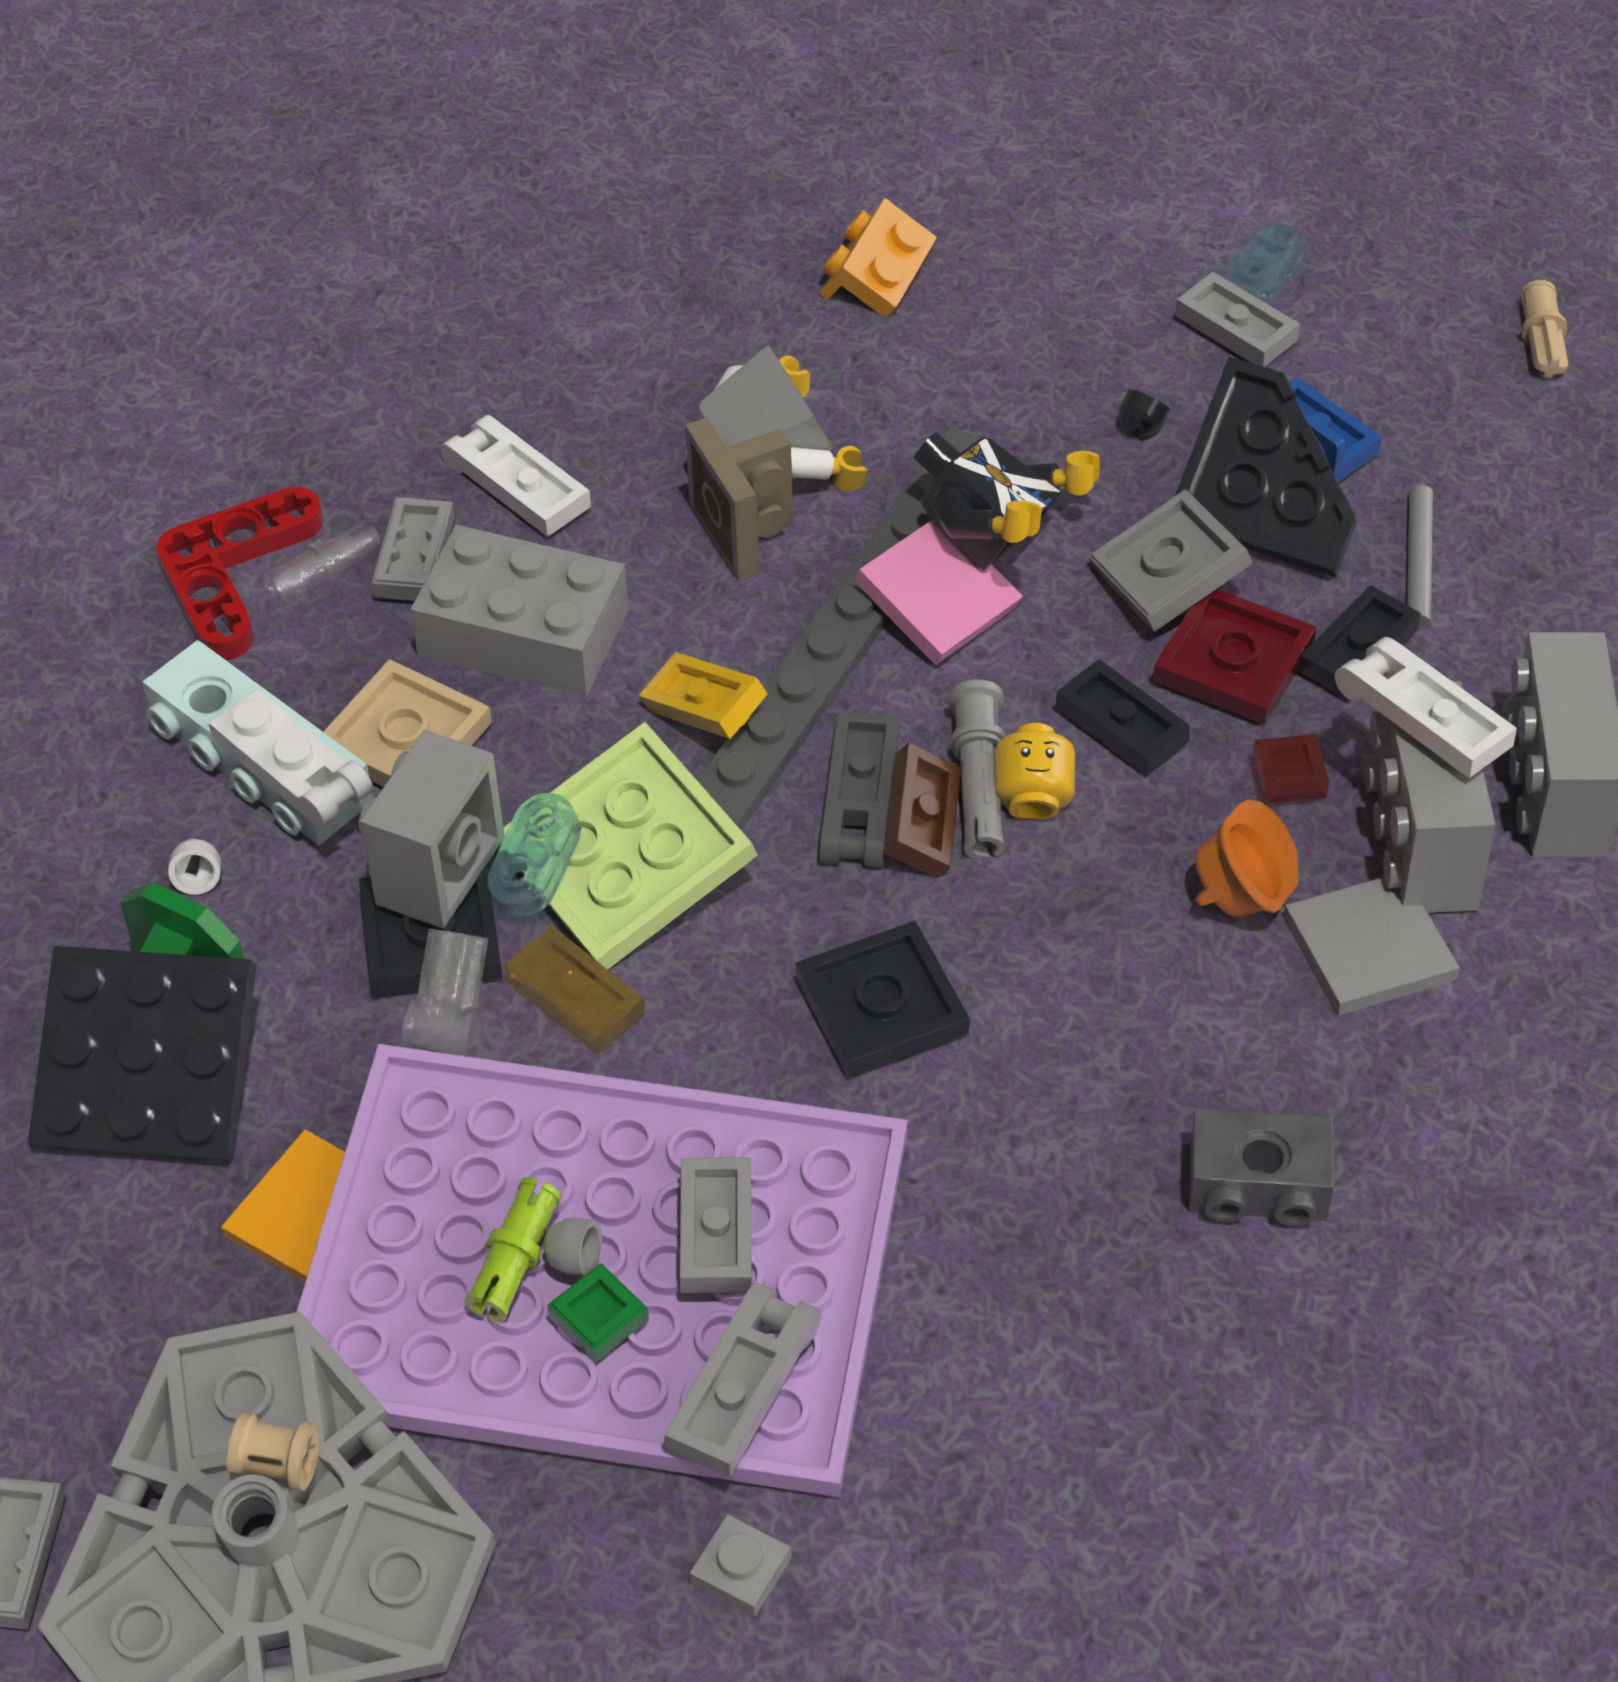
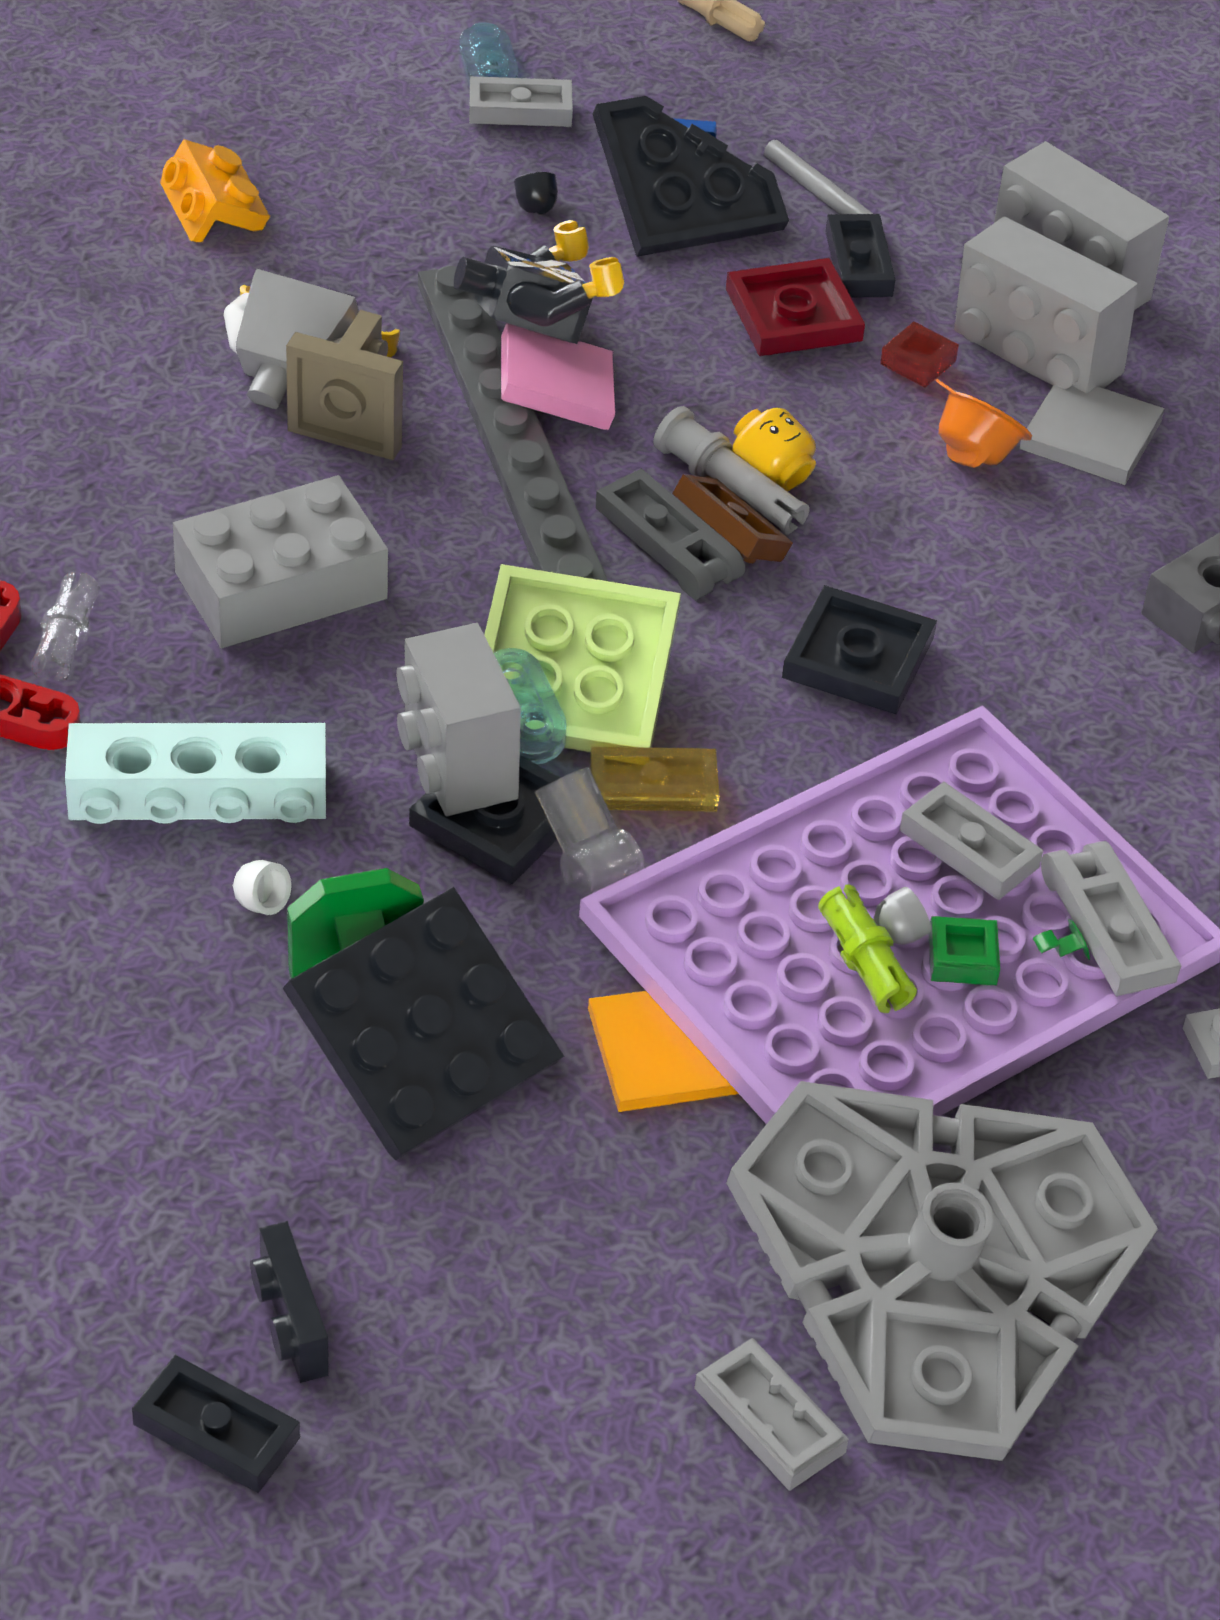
camera: 50 degrees left, 5 degrees down
(273, 1451) = (912, 1172): tan bush -> none
(289, 758) = (272, 751): white plate -> none
(396, 710) = (300, 686): tan plate -> none
(411, 546) = (128, 574): light grey plate -> none
(517, 475) = (135, 479): white plate -> none
(674, 1359) = (1063, 946): none -> green piece
(703, 695) = (492, 535): yellow plate -> none
(1122, 716) = (776, 383): black plate -> none
(1170, 560) = (687, 269): light grey tile -> none
(1427, 706) = (1017, 234): white plate -> none

